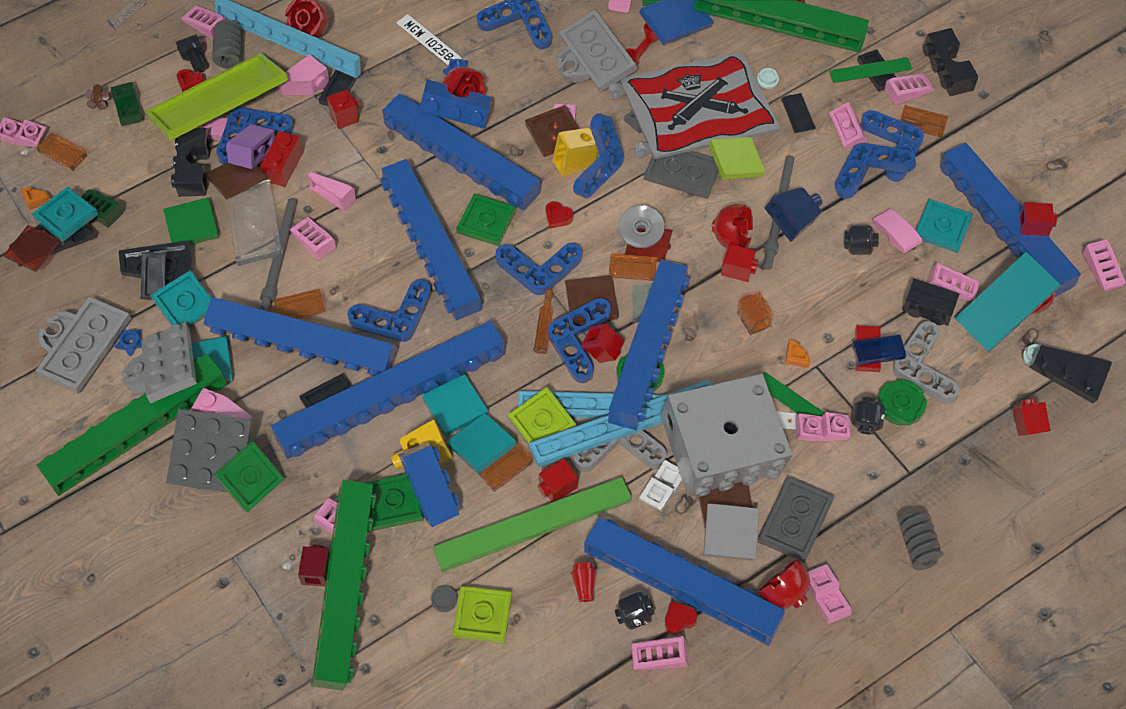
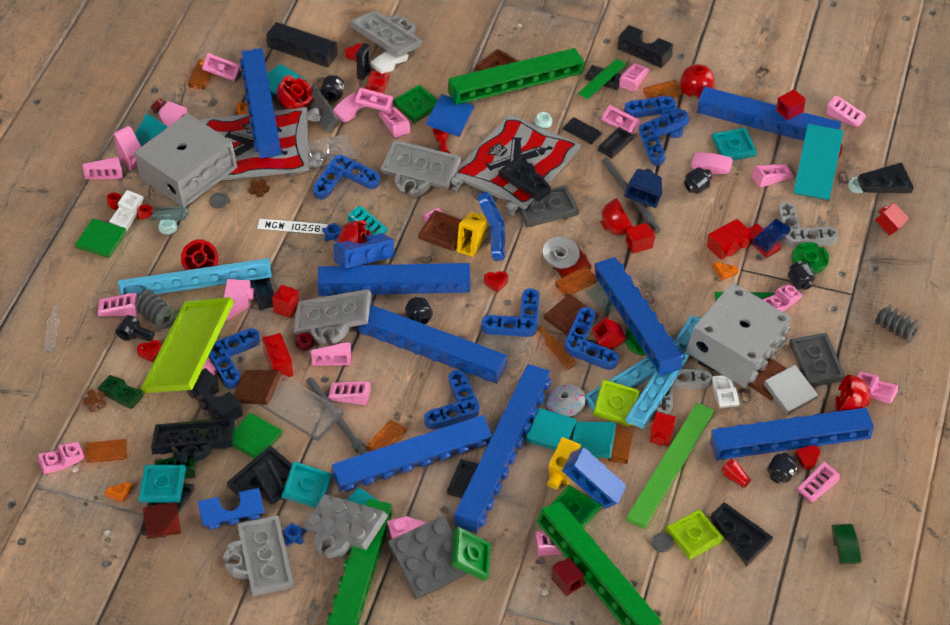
camera: 40 degrees left, 10 degrees down
(79, 272) = (213, 514): none -> blue arch
(129, 187) = (193, 438): none -> black plate
(249, 146) = (249, 360): medium lavender brick -> none
(323, 155) = (304, 341): none -> dark red plate
(363, 149) = (332, 315): none -> light grey plate
(450, 197) = (419, 310): none -> black head
(486, 219) = (453, 311): green tile -> none
(492, 66) = (360, 213): none -> teal slope
(500, 391) = (566, 406): none -> light grey dish
(525, 650) = (741, 533): none -> black wing
(682, 126) = (524, 177): none -> black wing
(736, 158) = (574, 178): lime tile -> none
(754, 313) = (678, 260): clear orange brick -> none
(819, 146) = (615, 142): none -> black tile
(830, 324) = (729, 239): none -> red brick
(930, 302) = (772, 191): black brick -> none
(971, 128) = (695, 79): none -> red cylinder

